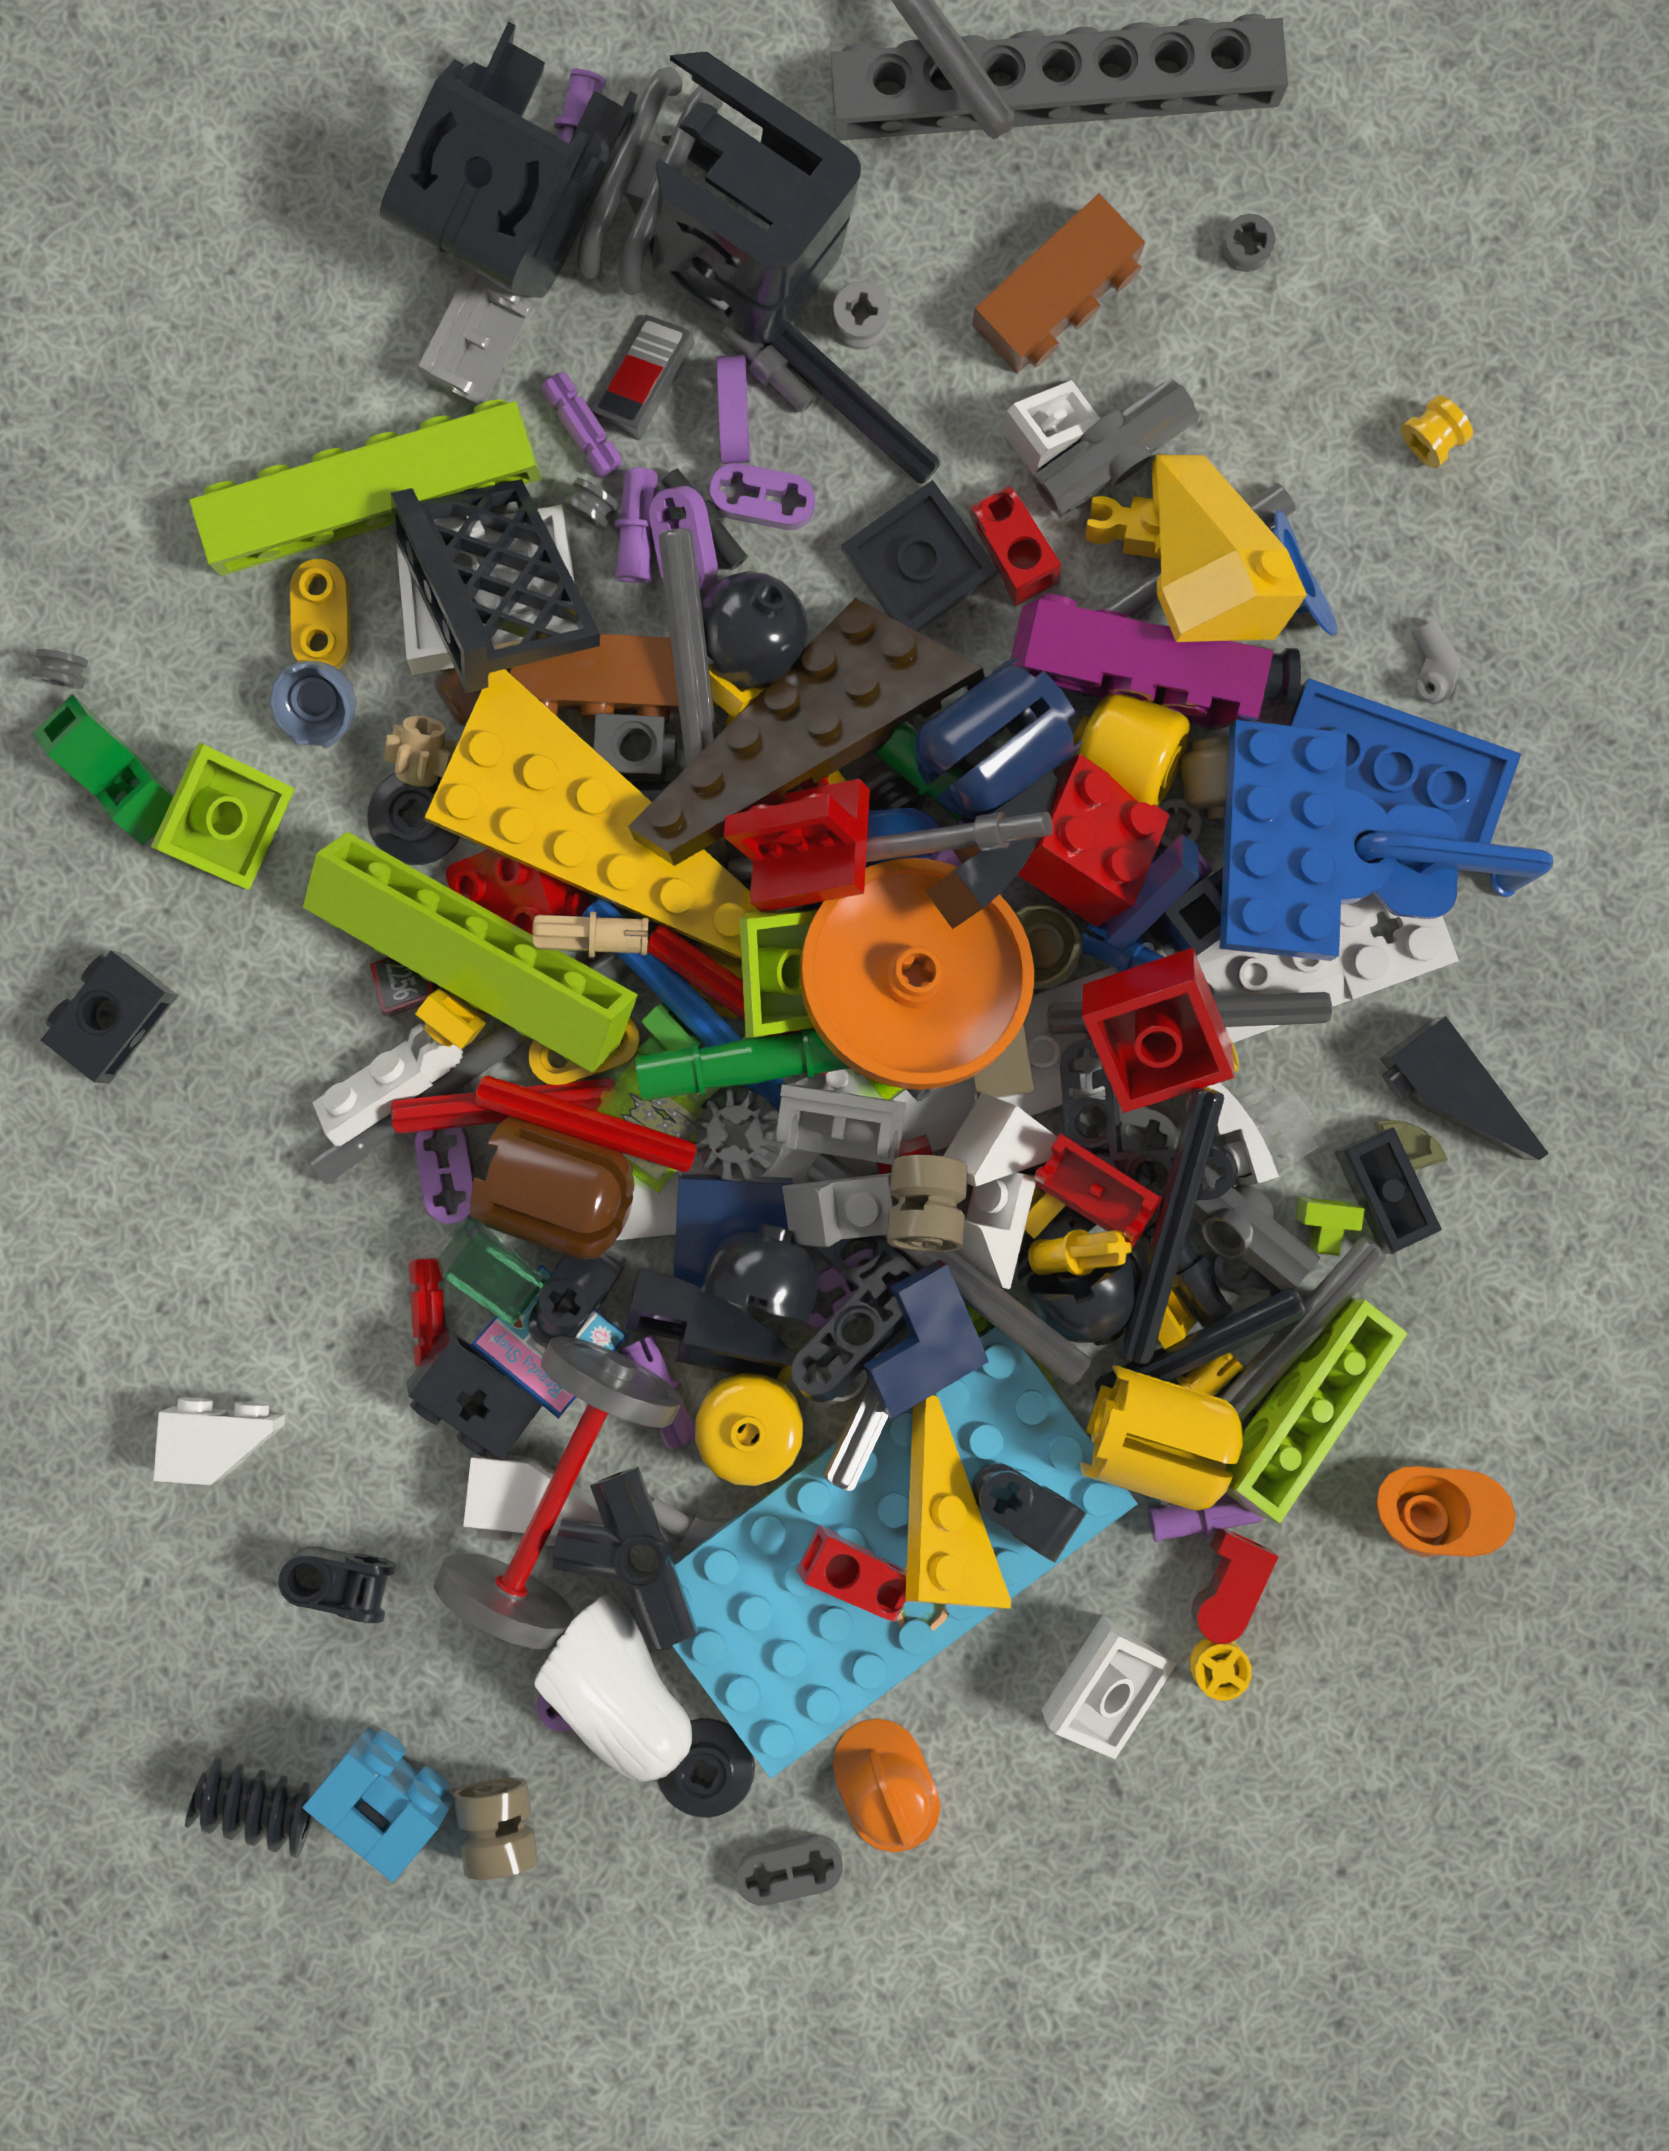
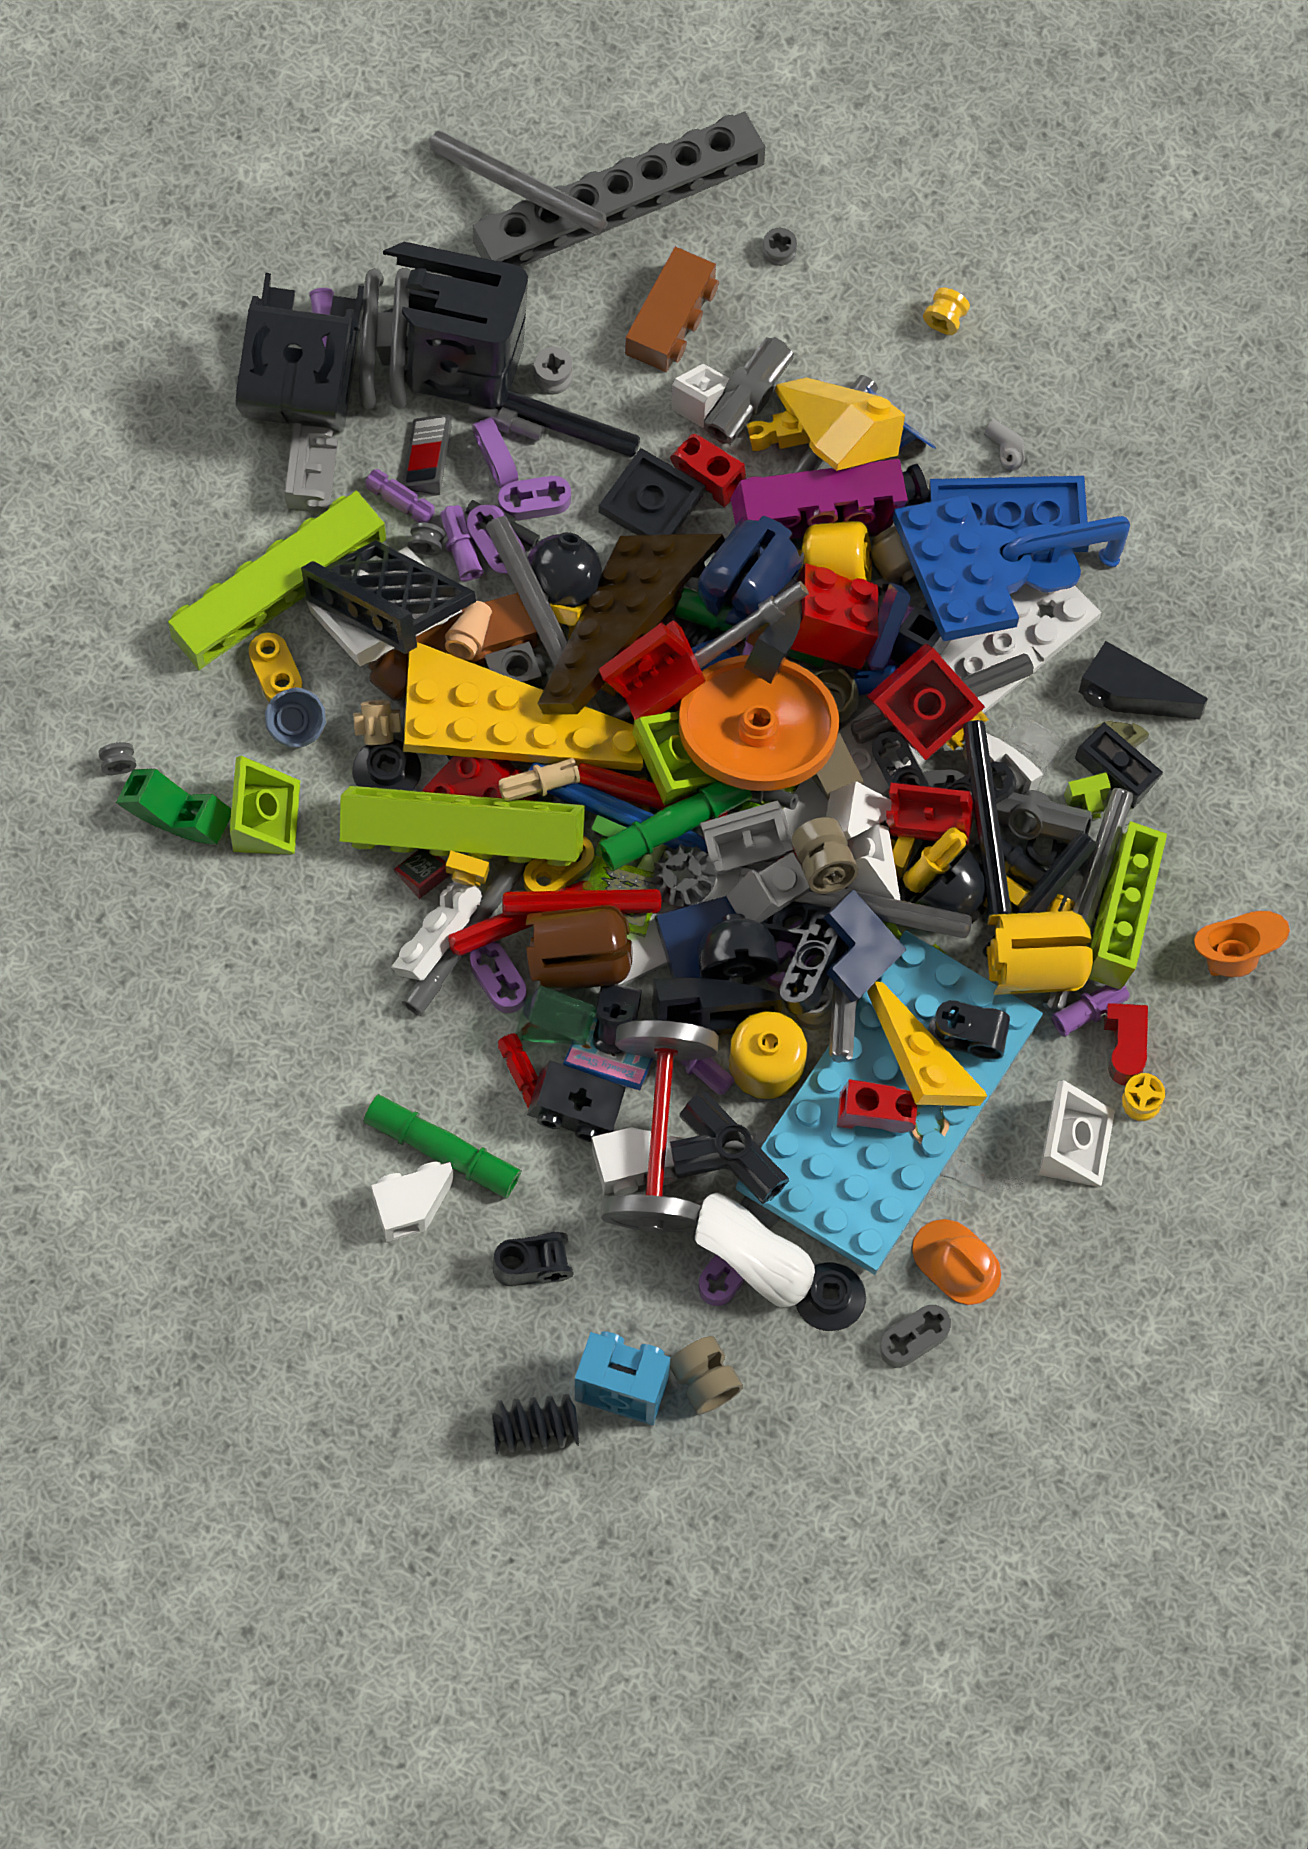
camera: 20 degrees left, 20 degrees down
(139, 1006) = (234, 981): black brick -> none
(281, 1379) = (442, 1146): none -> green piece
(582, 677) = (468, 632): none -> light nougat cone

